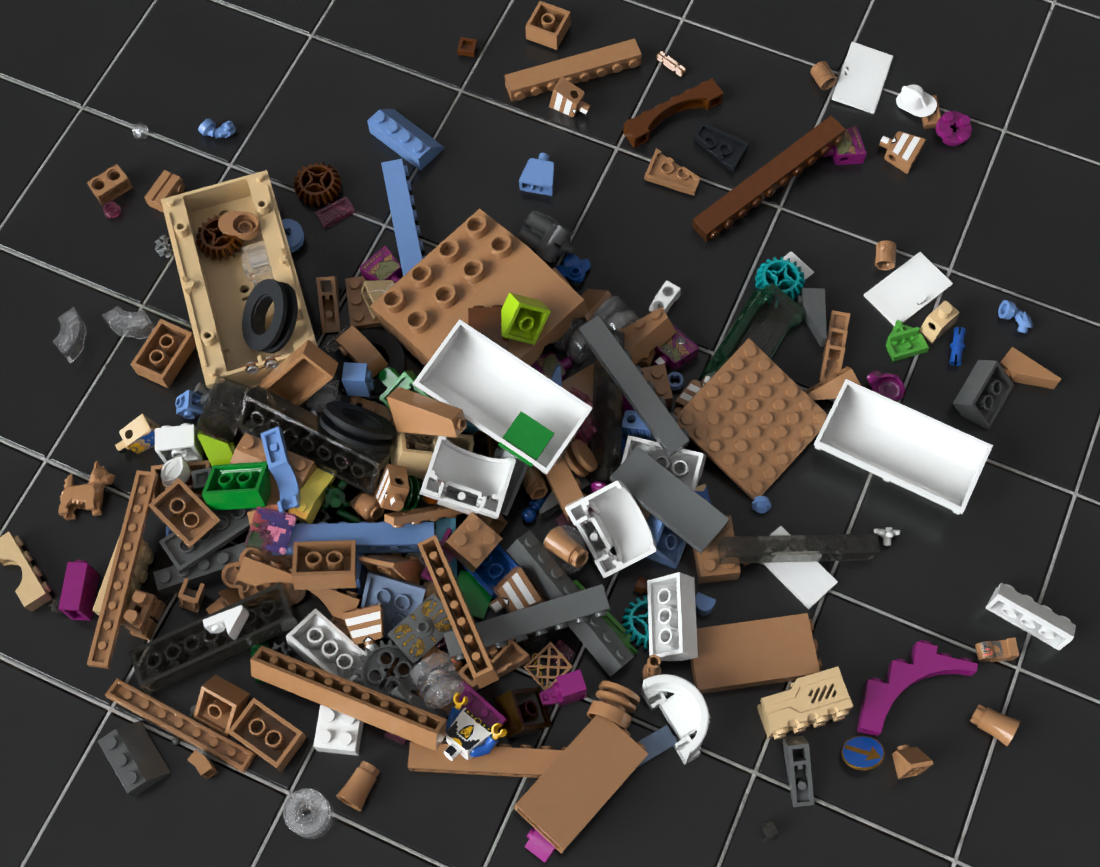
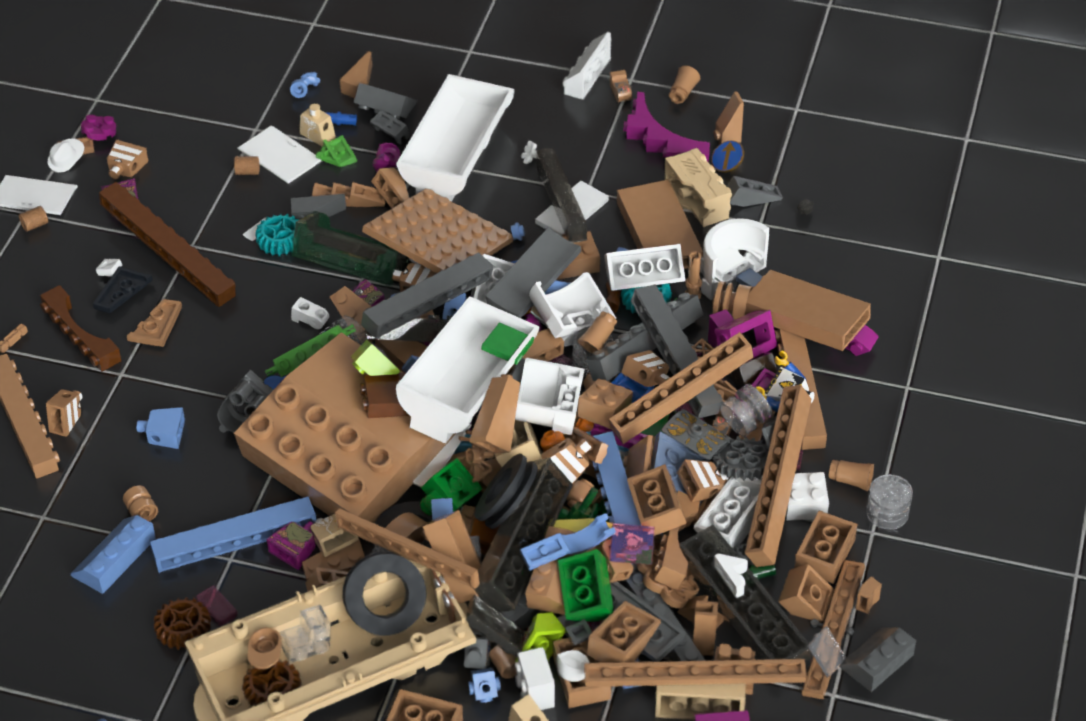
camera: 100 degrees left, 20 degrees down
(140, 704) = (826, 651): none -> clear piece
(302, 333) = (407, 548): none -> medium nougat tile
(456, 153) = (140, 503): none -> medium nougat wheel
(554, 699) = (759, 321): none -> magenta piece
(597, 288) = (292, 359): none -> bright green plate
(751, 135) = (108, 267): none -> white plate
(936, 393) = (390, 126): none -> dark grey hinge

